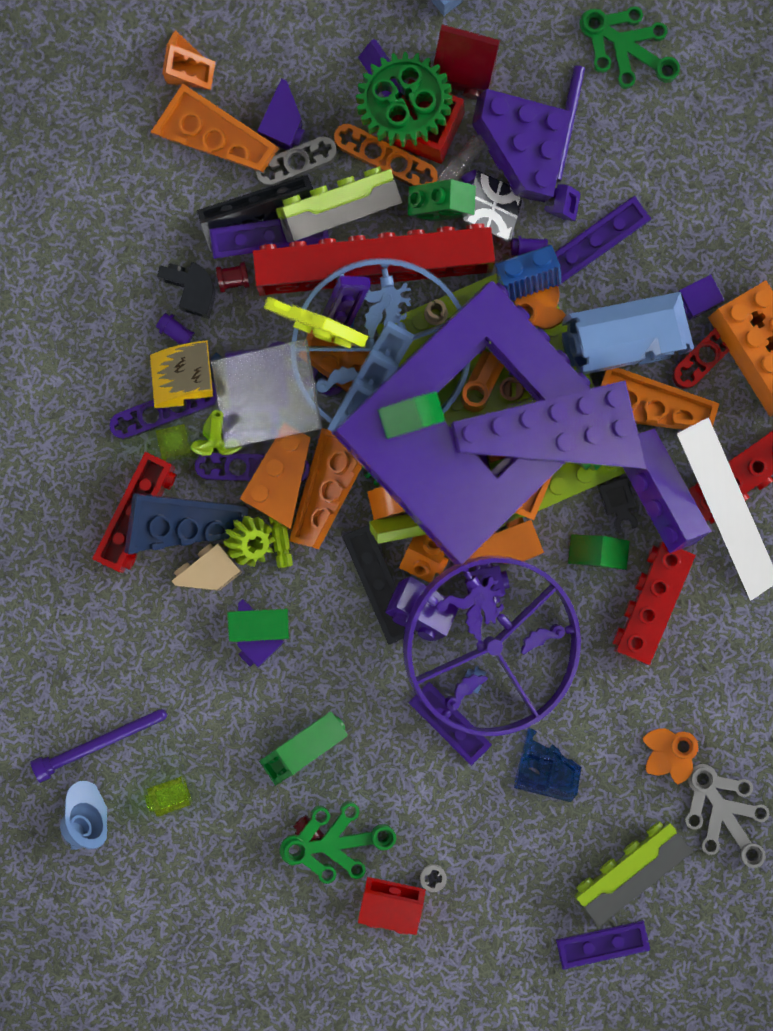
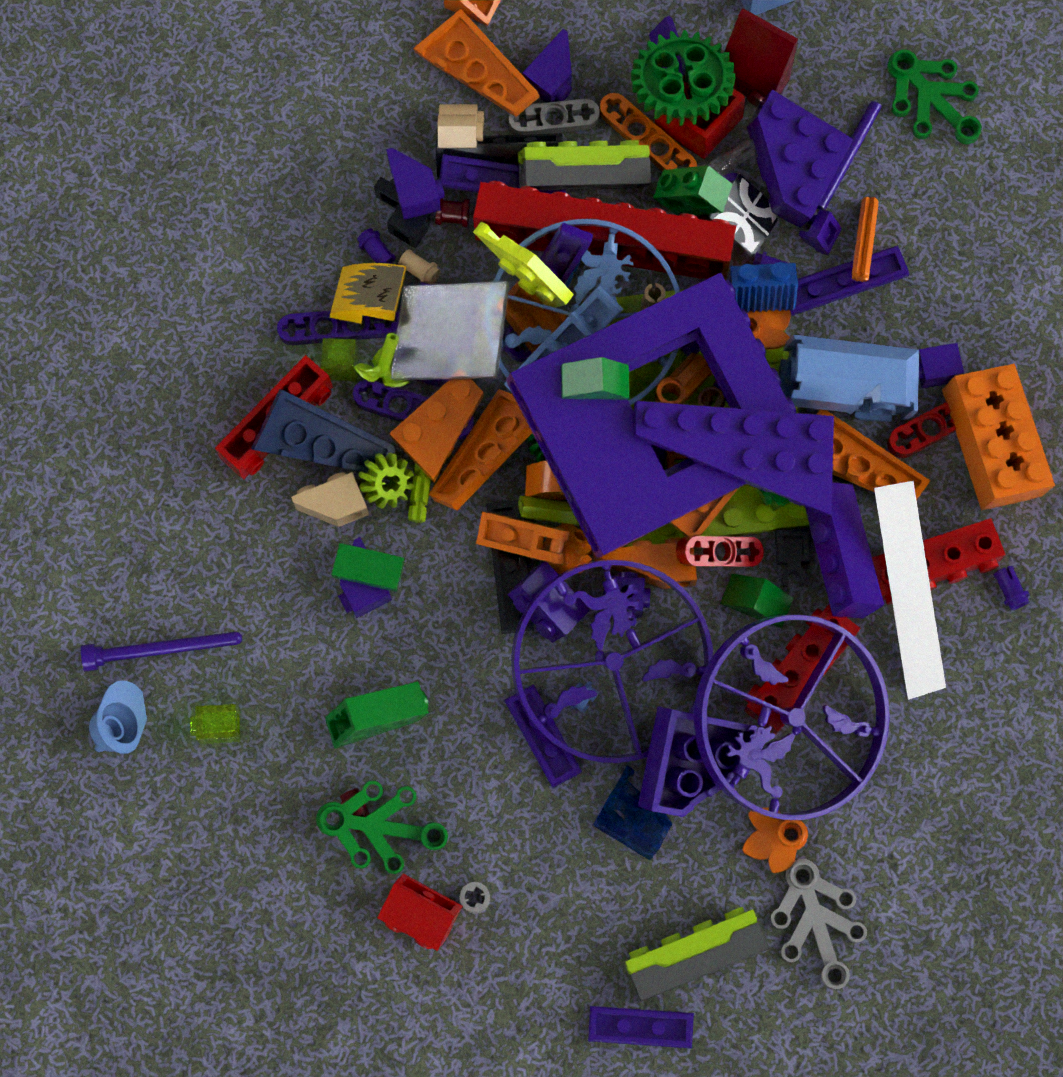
camera: 15 degrees right, 10 degrees down
(193, 267) = (414, 185): none -> dark purple slope
(216, 197) = (460, 125): none -> tan brick
(219, 337) = (419, 267): none -> tan pin
(383, 561) = (521, 537): none -> orange plate
(546, 517) = (709, 544): none -> red beam
(586, 710) = (674, 768): none -> dark purple brick
(604, 199) = (865, 239): none -> orange axle
(635, 694) = (751, 752): none -> dark purple piece

